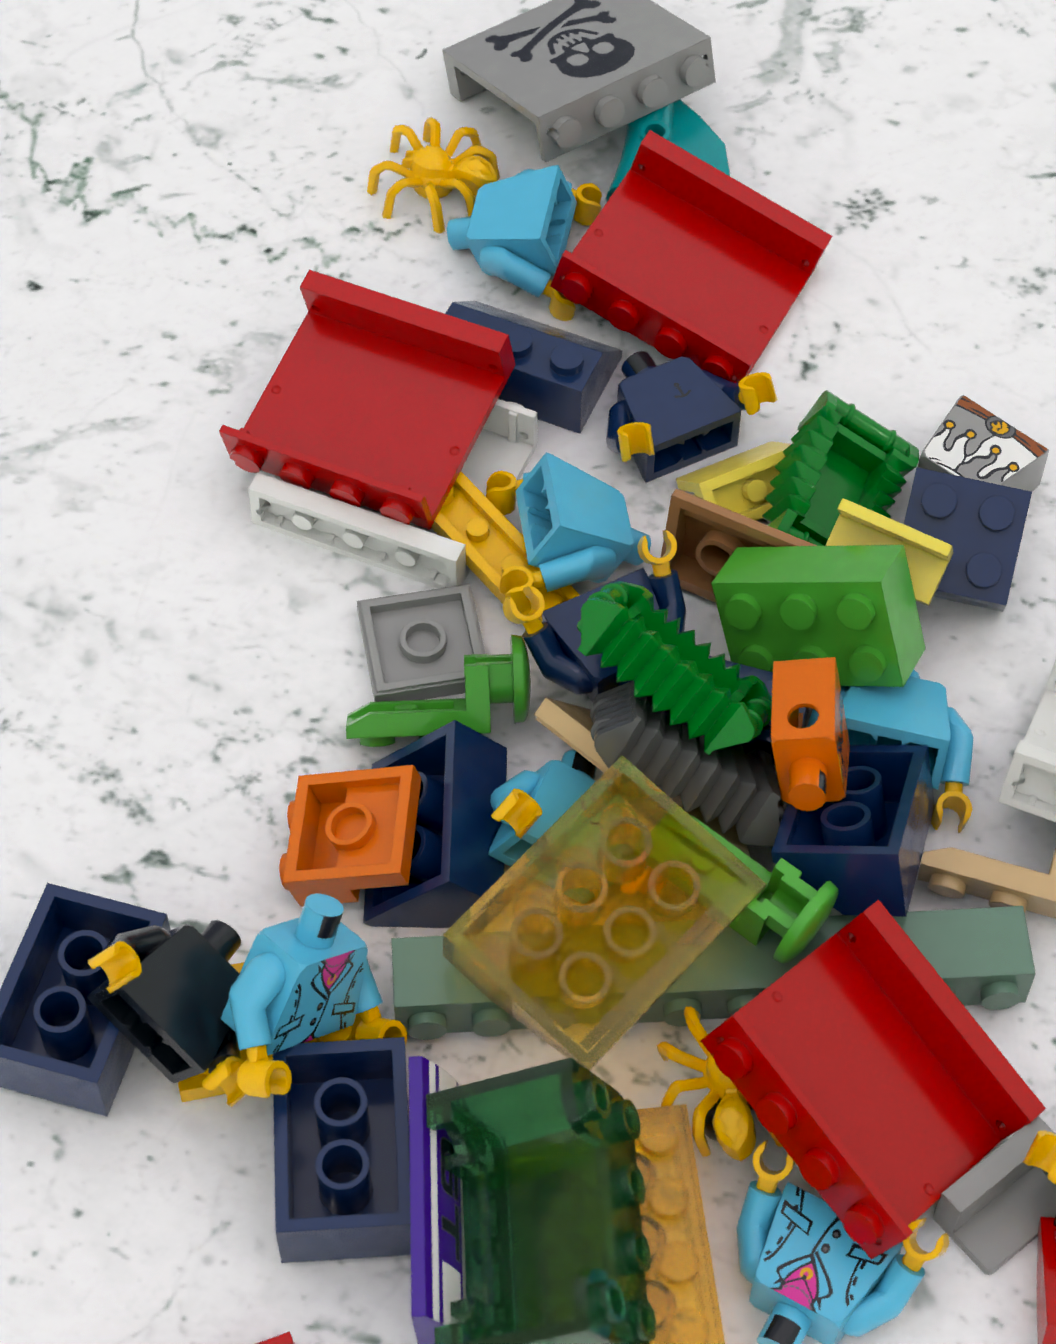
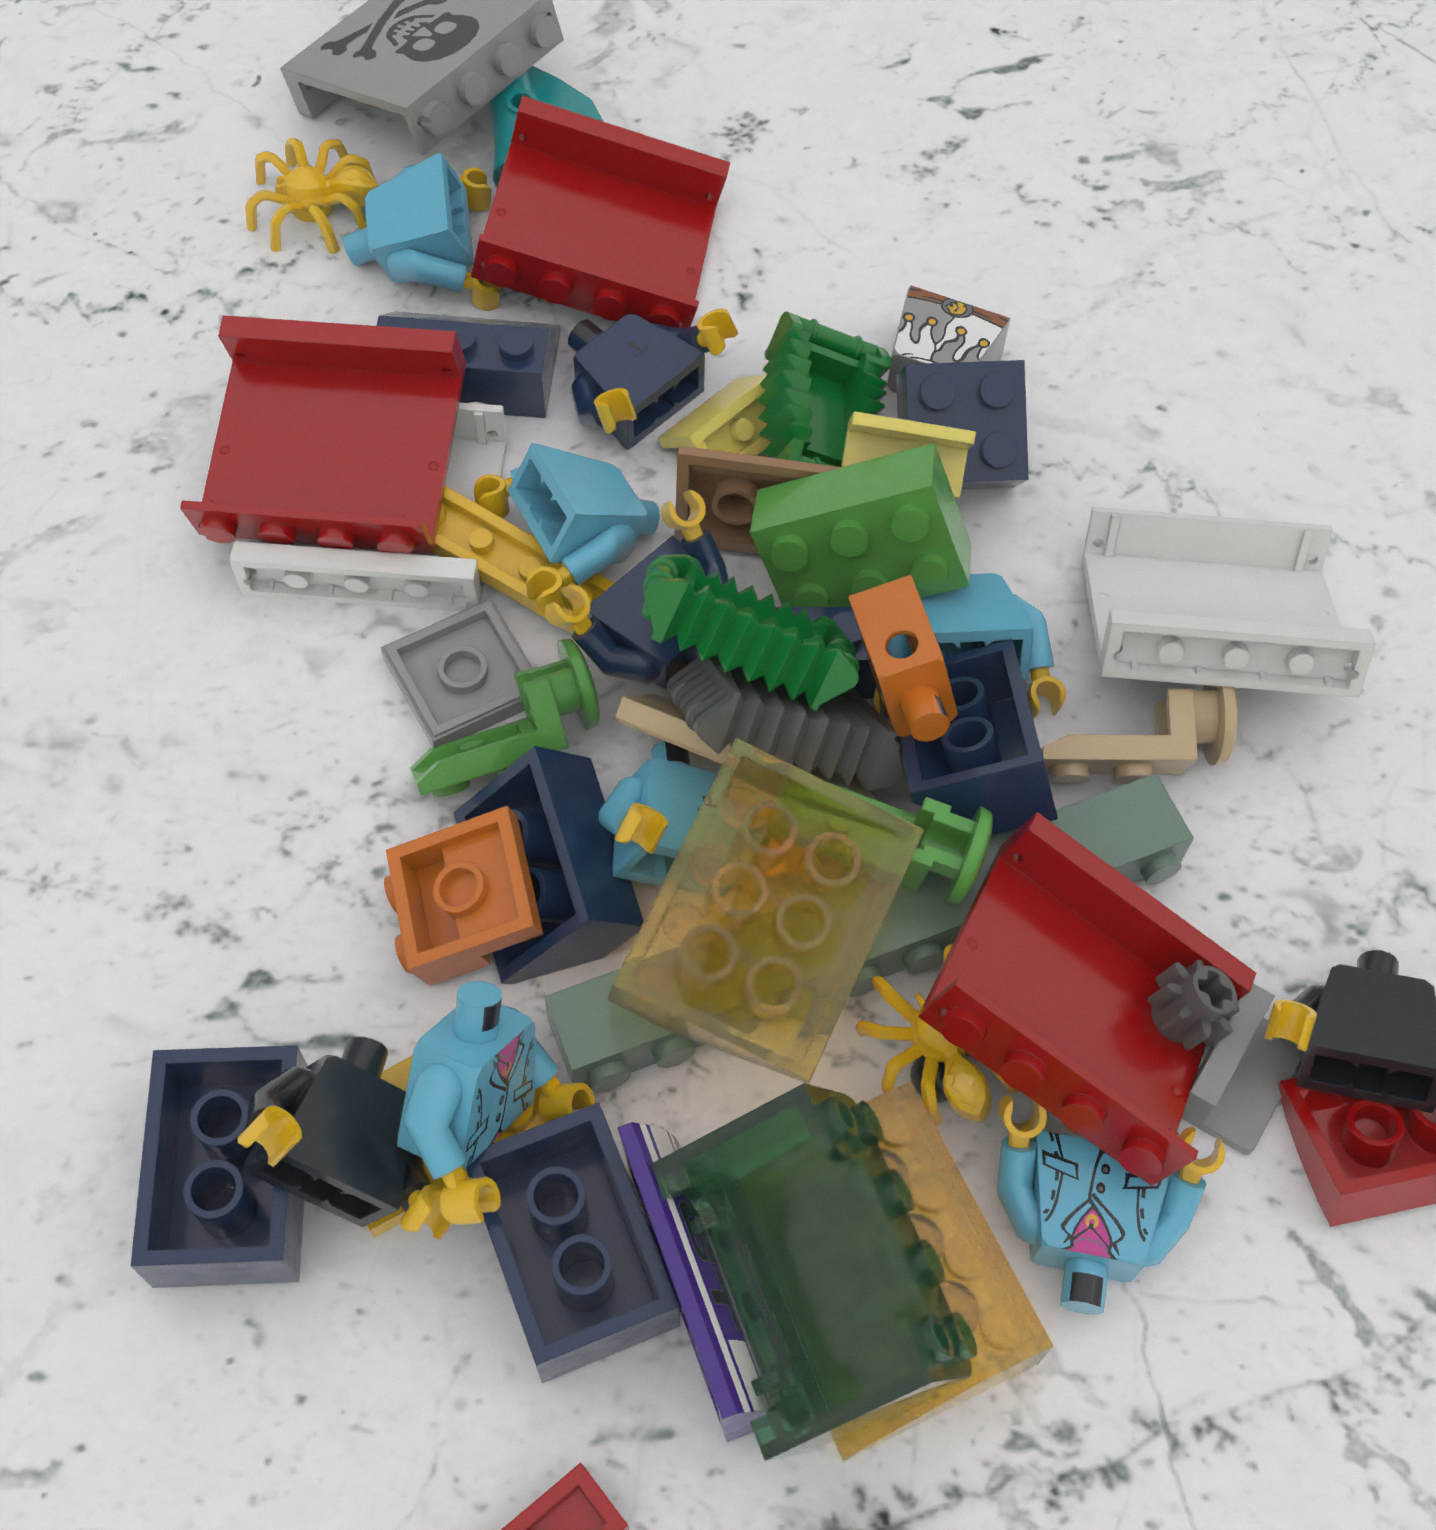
camera: 20 degrees left, 5 degrees up
(972, 1116) = (1193, 1004): none -> dark grey gear

